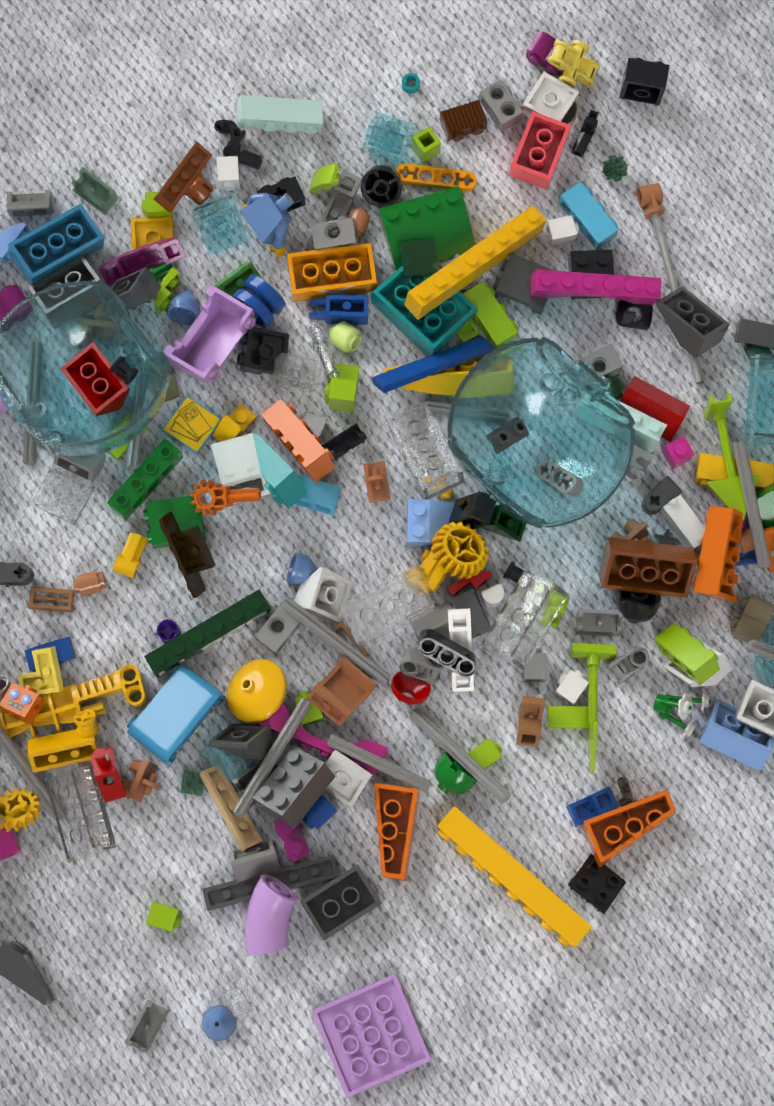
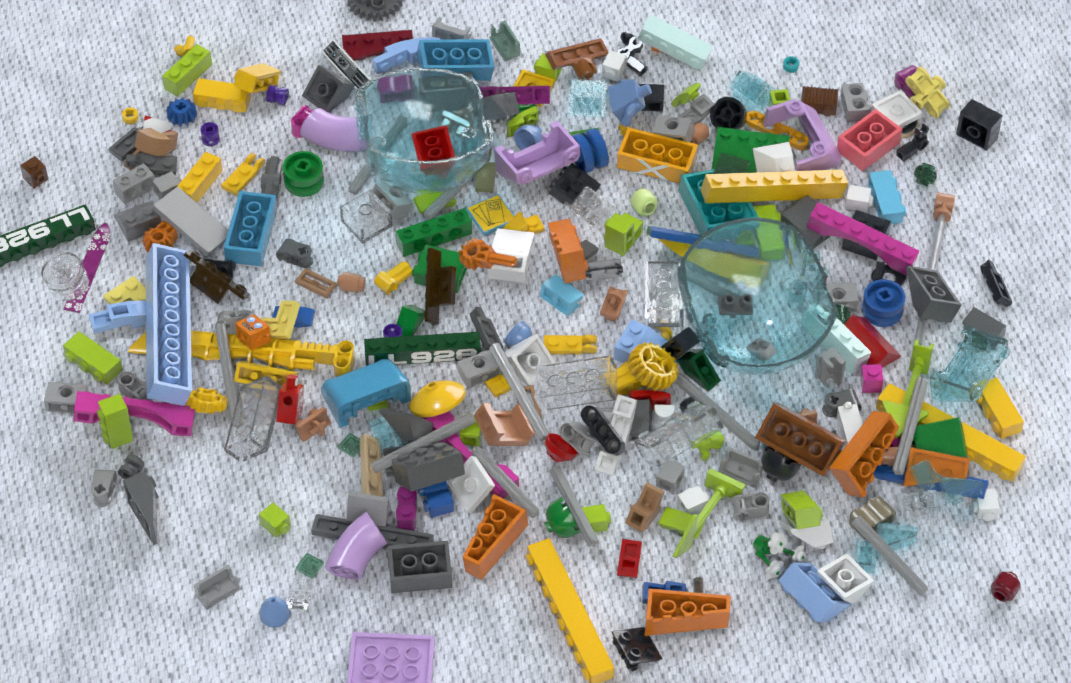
camera: 30 degrees right, 25 degrees down
(86, 723) = (293, 364): yellow wheel -> none
(124, 370) = (459, 145): black bush -> none
(175, 600) = (410, 319): none -> green slope
(225, 949) = (309, 565): none -> clear green tile
(260, 577) = (485, 327): none -> dark grey hinge
(279, 476) = (537, 261): slope -> none
(305, 638) = (497, 385): none -> yellow tile
(322, 344) = (622, 198): clear pin -> none
(341, 308) = (657, 182): blue hinge -> none
(352, 552) = (570, 344): none -> yellow hinge
(459, 227) = (774, 158): none -> white slope
(503, 184) = (823, 149): none -> lavender windscreen
(539, 783) = (629, 558): none -> red slope
(542, 563) = (728, 421): none -> light grey axle
(648, 353) = (883, 303): none -> blue wheel
(744, 273) = (996, 284): none -> black hinge

